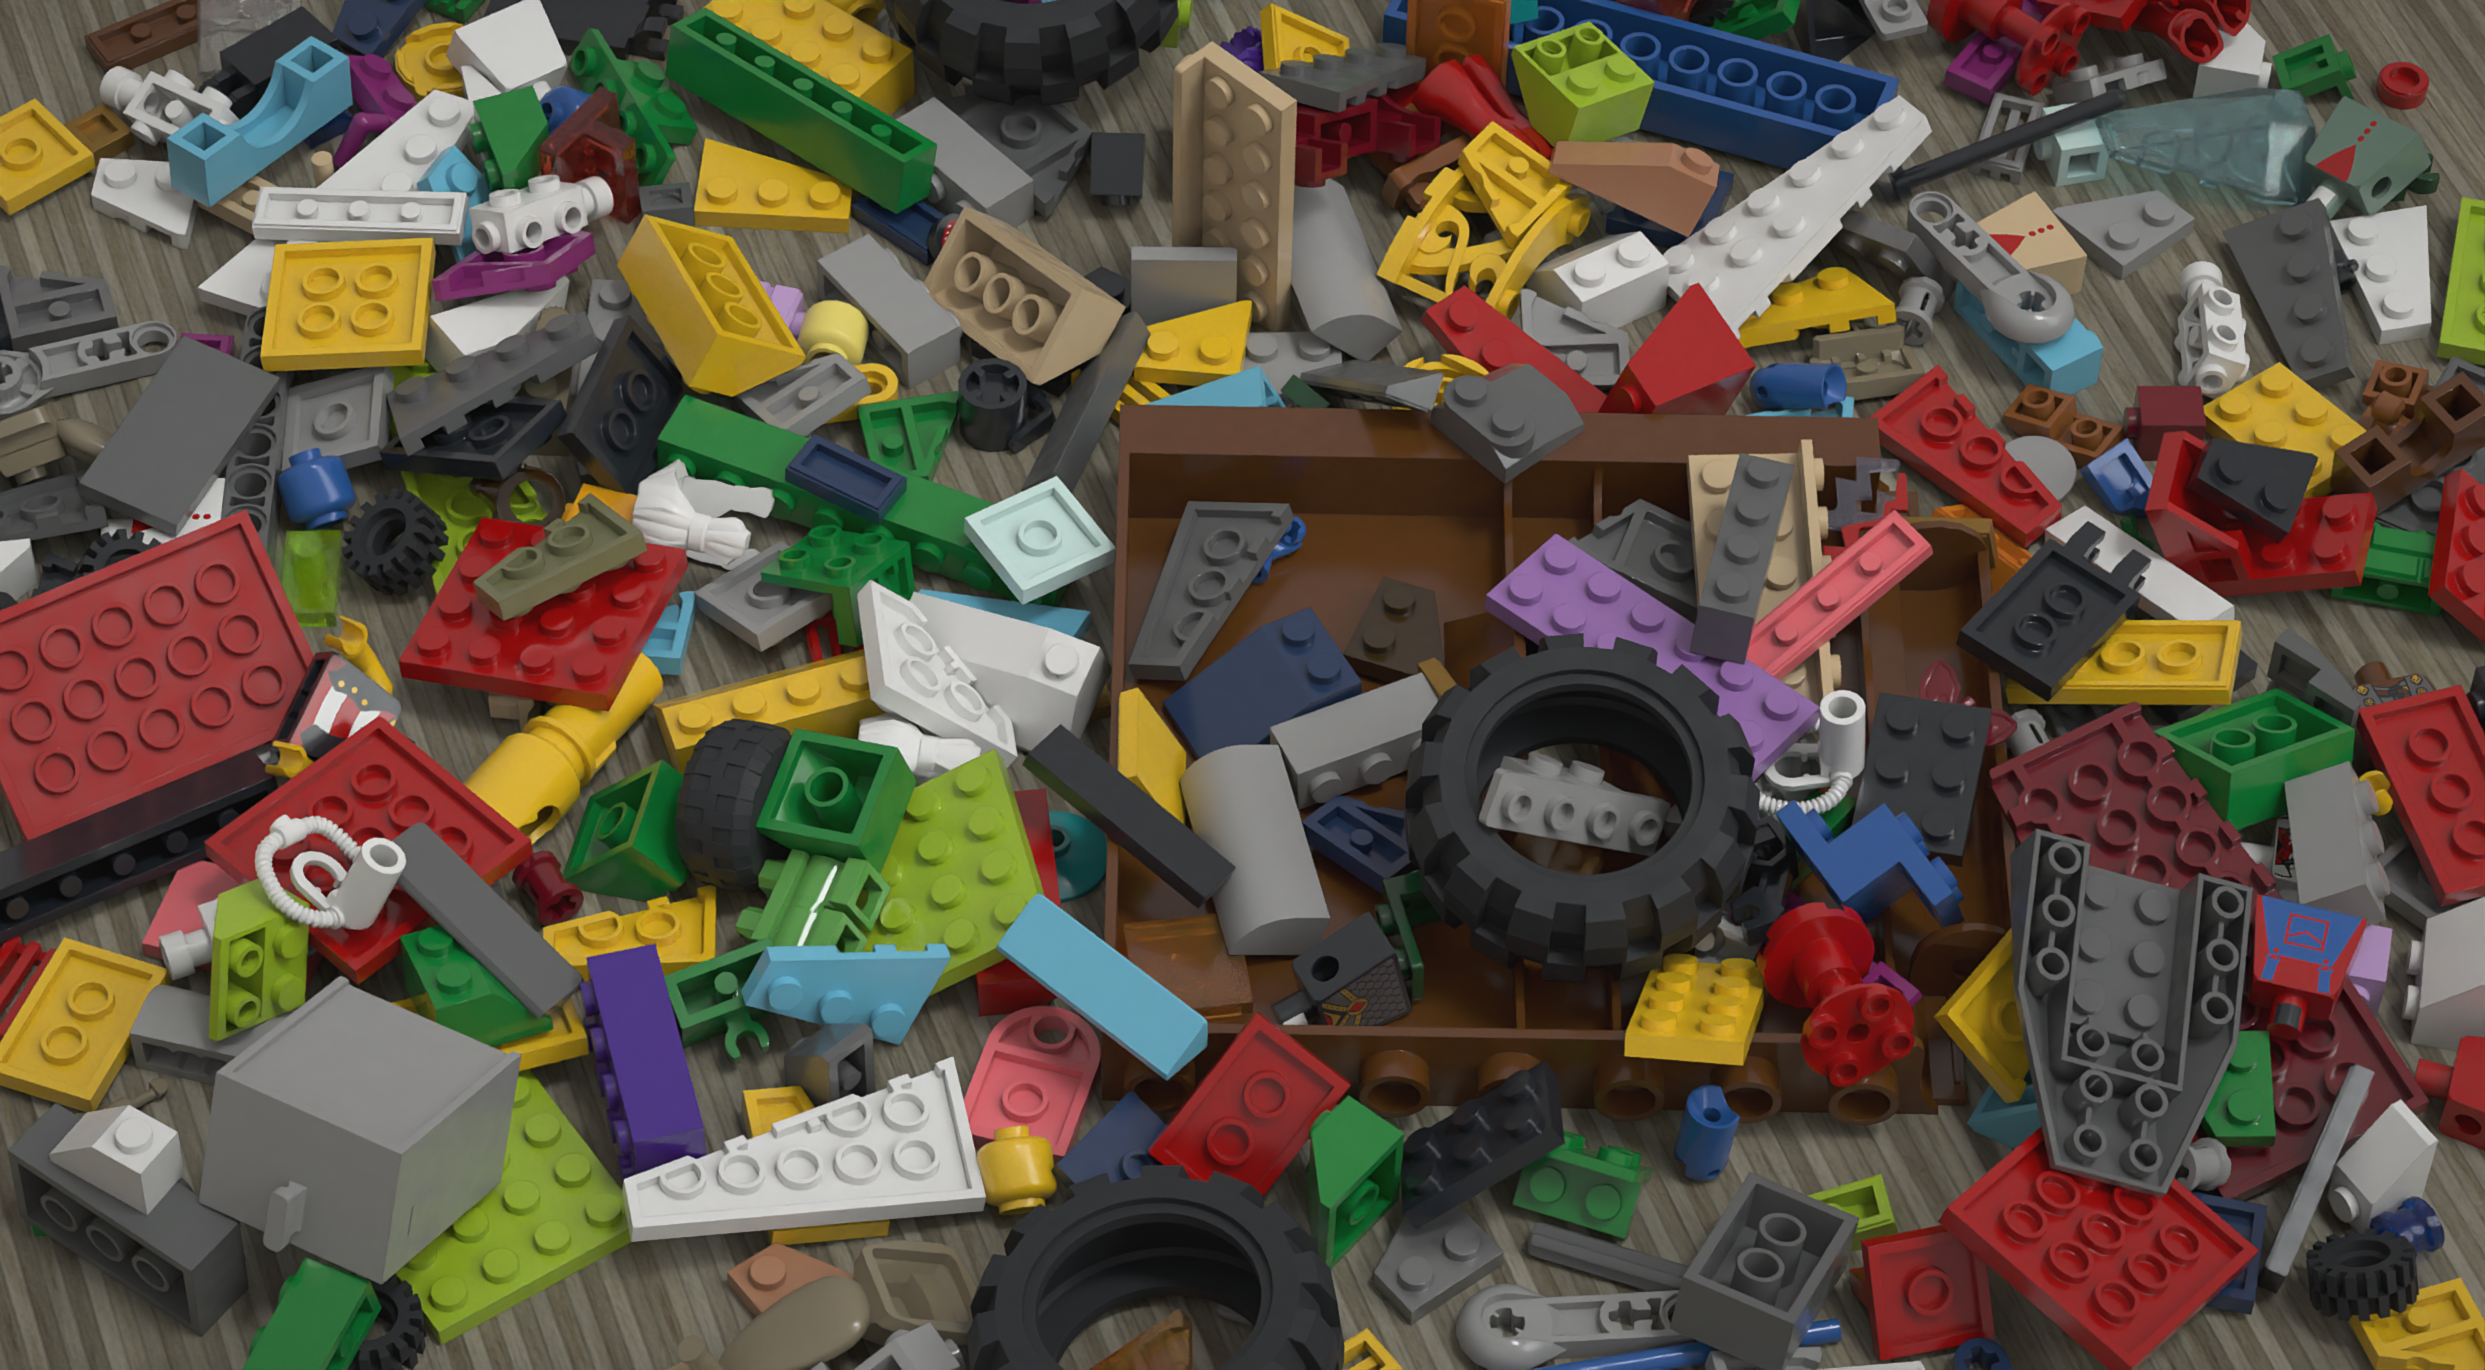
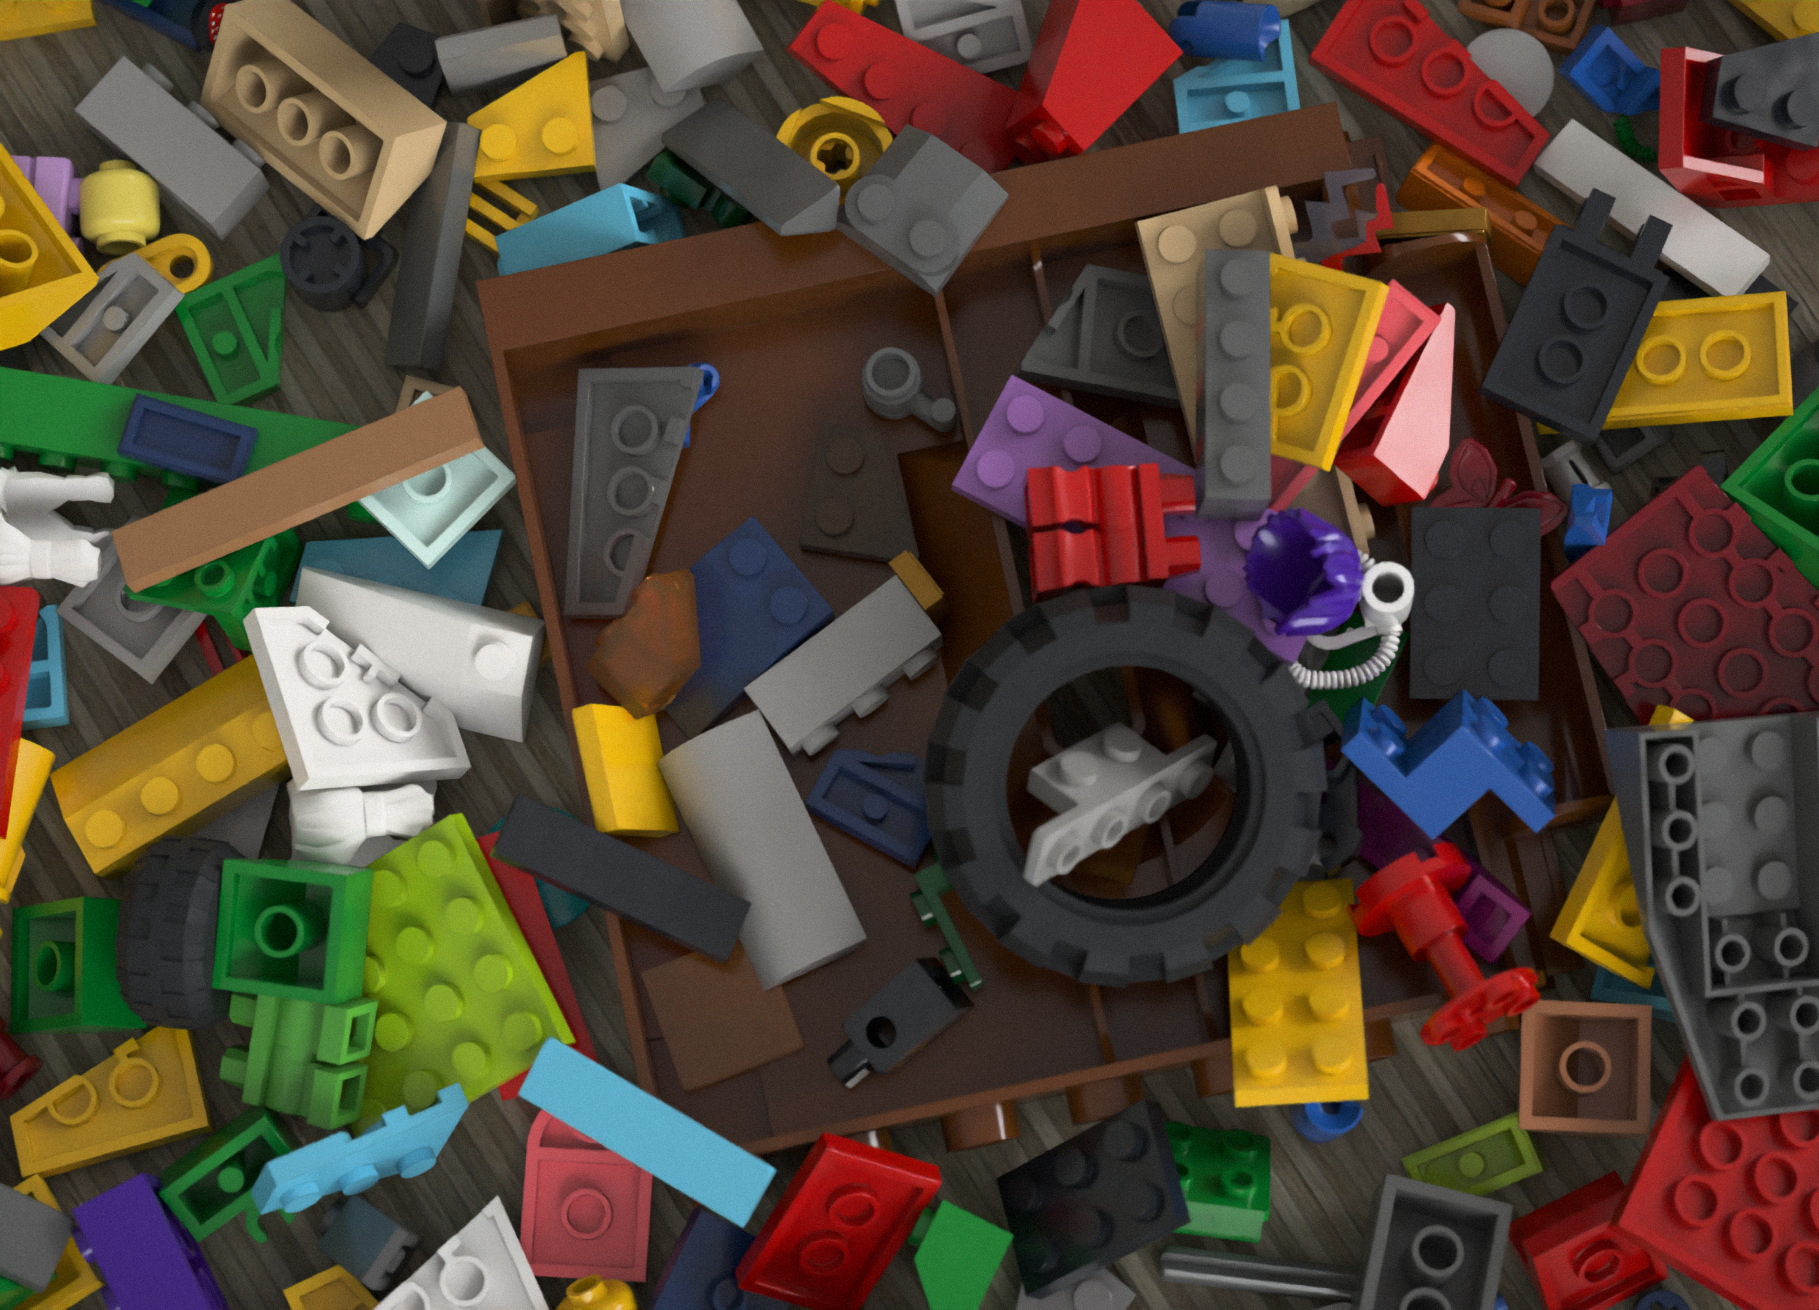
camera: 10 degrees left, 30 degrees up
(929, 514) = (297, 489): none -> medium nougat tile
(1200, 682) = (653, 648): none -> clear orange slope
(1454, 561) = (896, 390): none -> dark grey piece
(1613, 609) = (1122, 526): none -> red hips
(1773, 683) = (1303, 573): none -> dark purple hair
(1817, 551) = (1317, 354): none -> yellow wing
(1887, 639) = (1407, 429): none -> slope
(1943, 1140) = (1585, 1069): none -> nougat slope
(2029, 729) = (1586, 519): none -> blue slope

